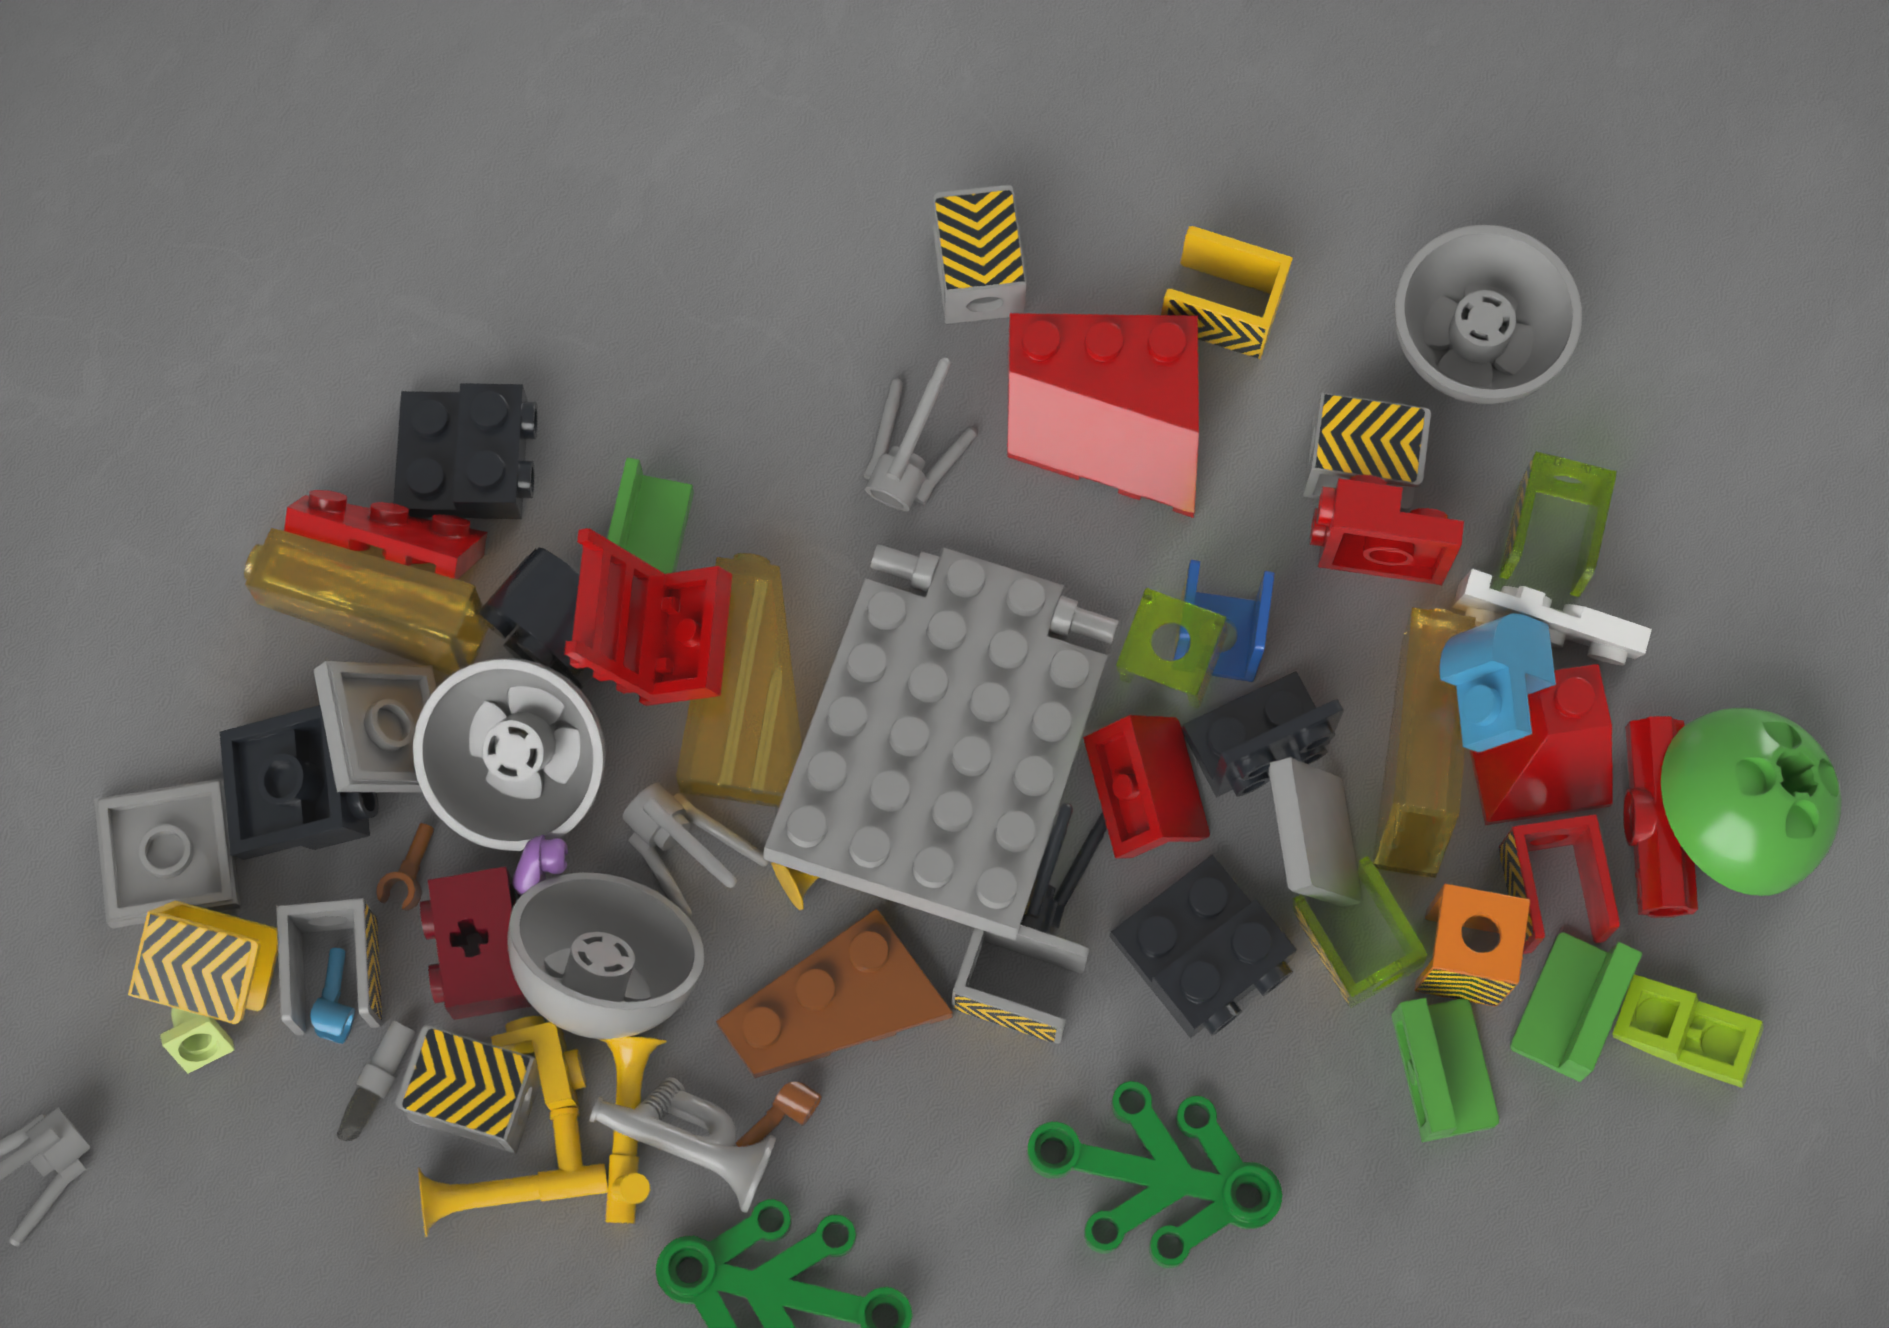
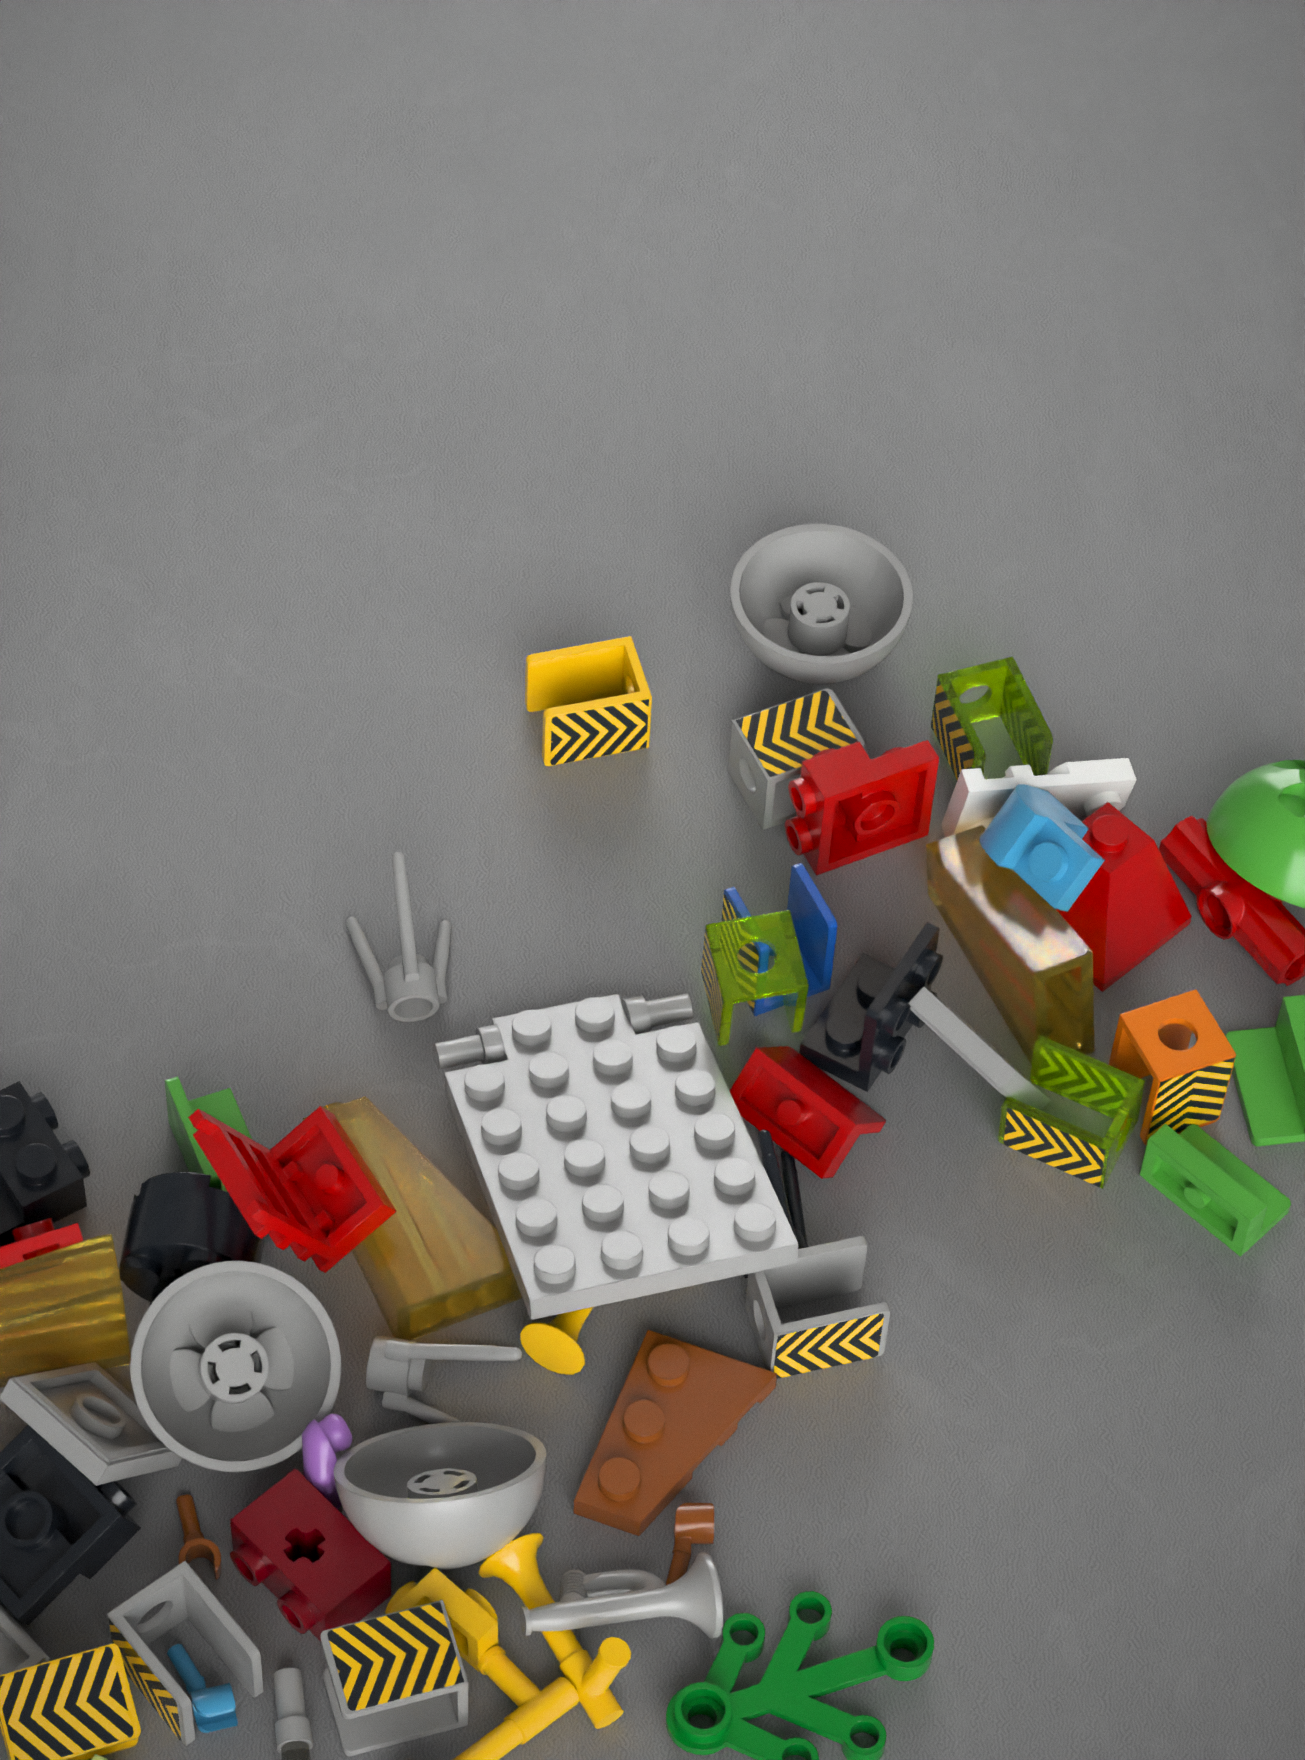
camera: 35 degrees left, 20 degrees down
(979, 254) = (358, 778): piece -> none
(1107, 401) = (549, 832): red wedge -> none
(1166, 1176) = (1049, 1397): green plant -> none
(1205, 948) = (951, 1204): black plate -> none
(1592, 866) = (1211, 960): red piece -> none

